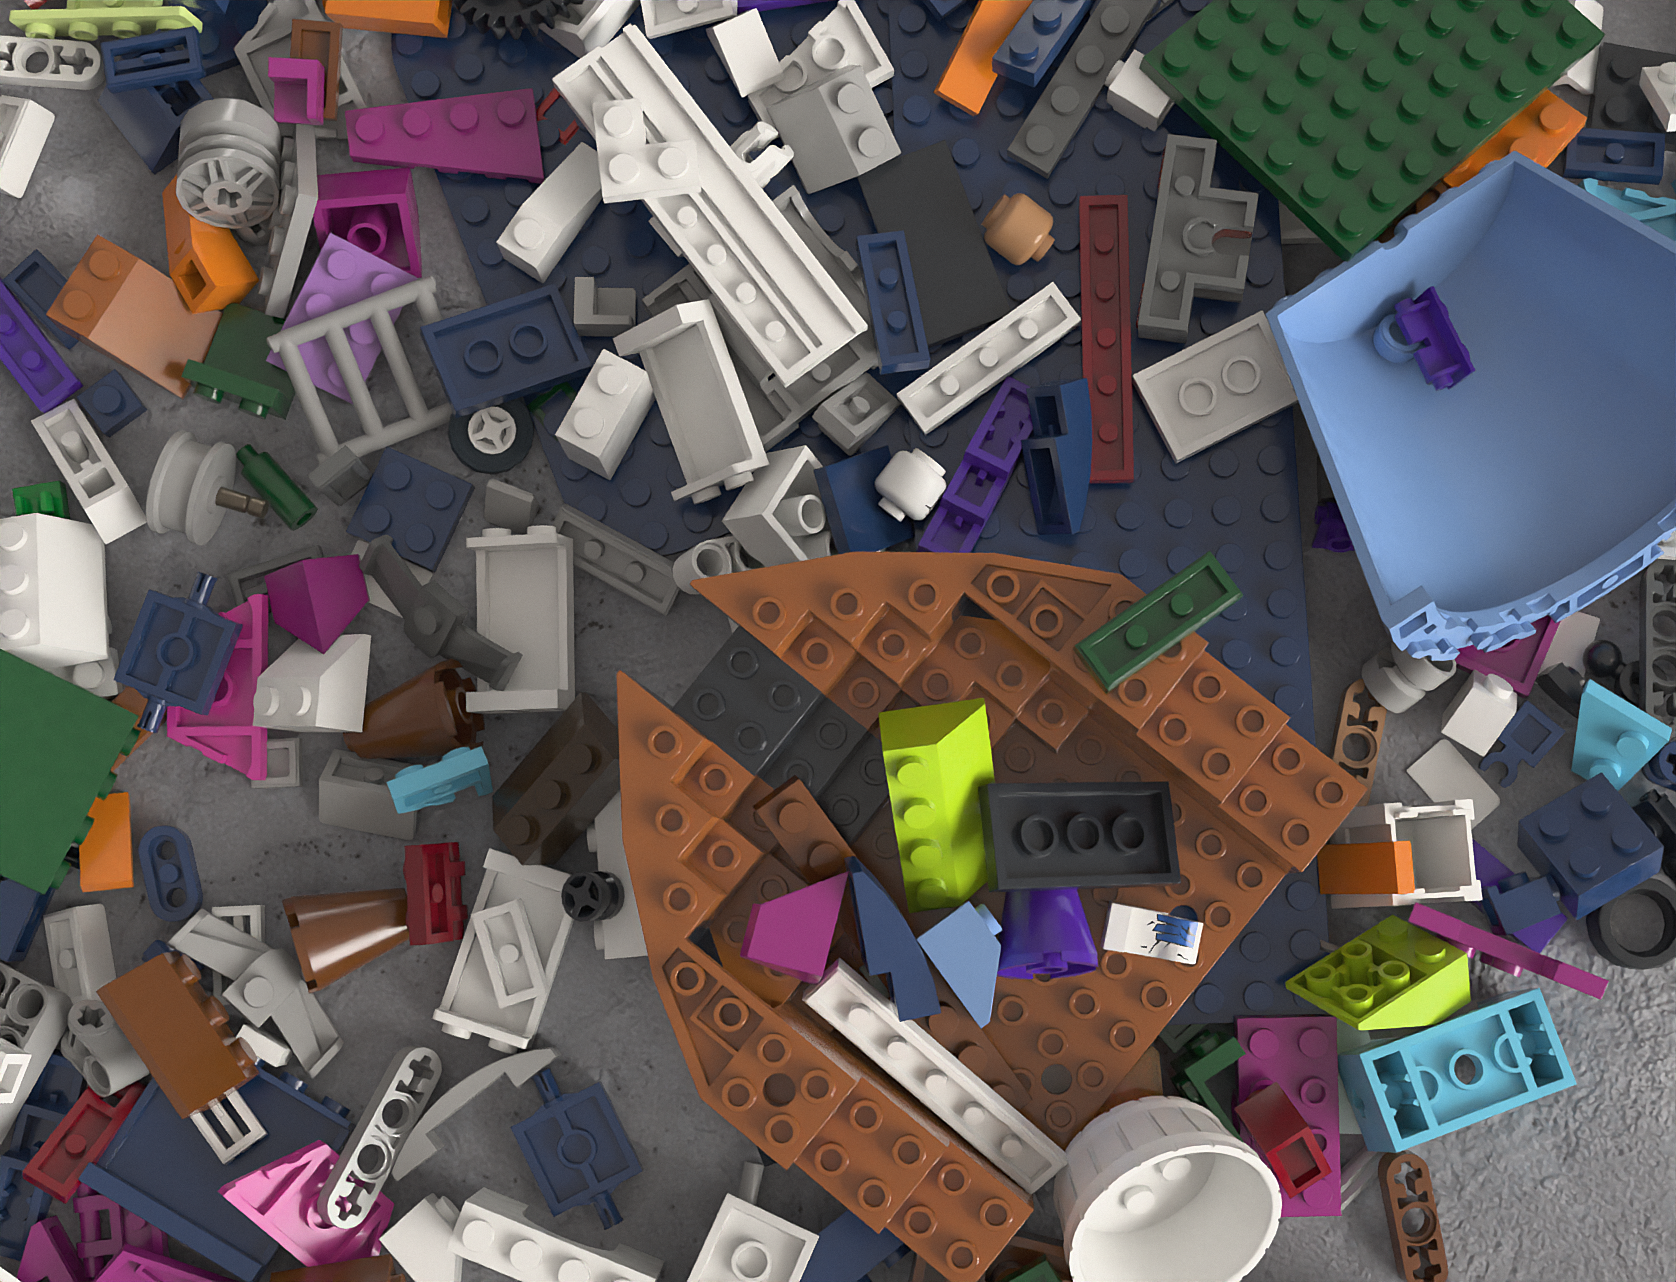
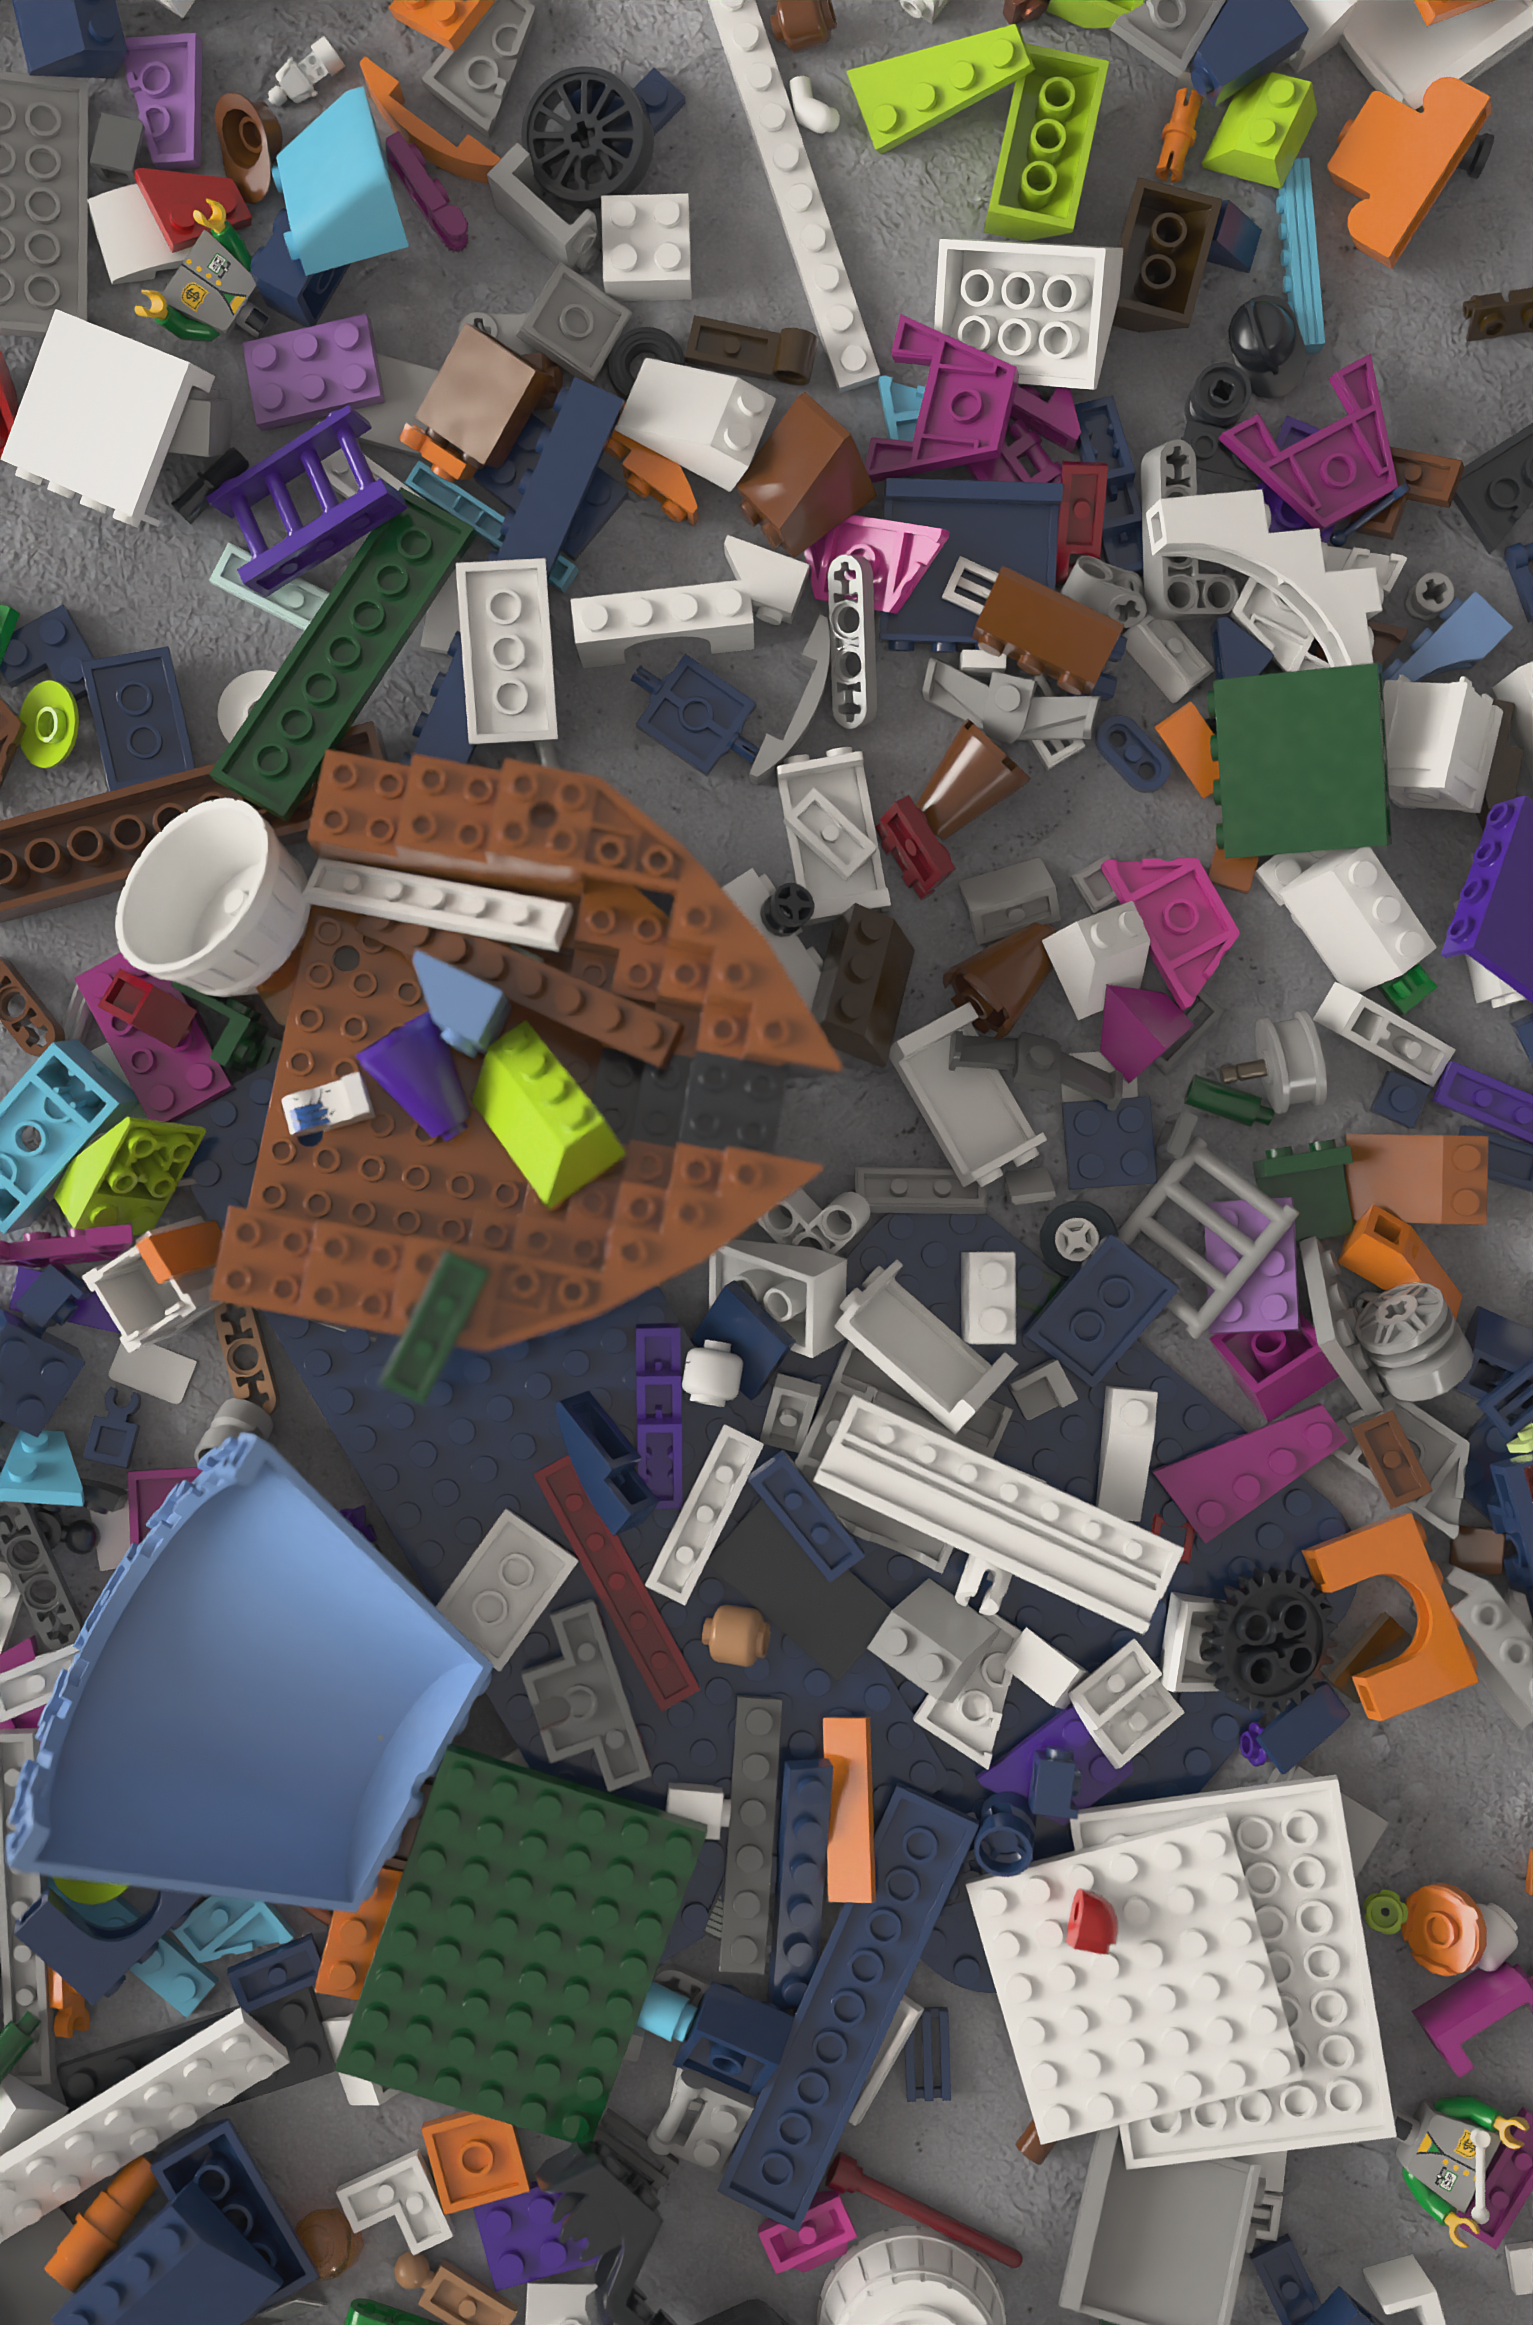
camera: 150 degrees right, 5 degrees up
(178, 652) = (1224, 925): dark blue plate -> none
(297, 90) = (1392, 1431): magenta panel -> none
(437, 783) = (969, 921): medium azure wing -> none
(631, 166) = (1077, 1508): white plate -> none
(795, 930) = (598, 949): magenta slope -> none
(890, 946) = (521, 978): dark blue slope -> none
(1078, 835) = (421, 1147): black plate -> none
(1391, 342) = (379, 1716): medium blue tile -> none
(1445, 358) = (330, 1718): dark purple hinge -> none
(1480, 711) = (159, 1436): white brick -> none

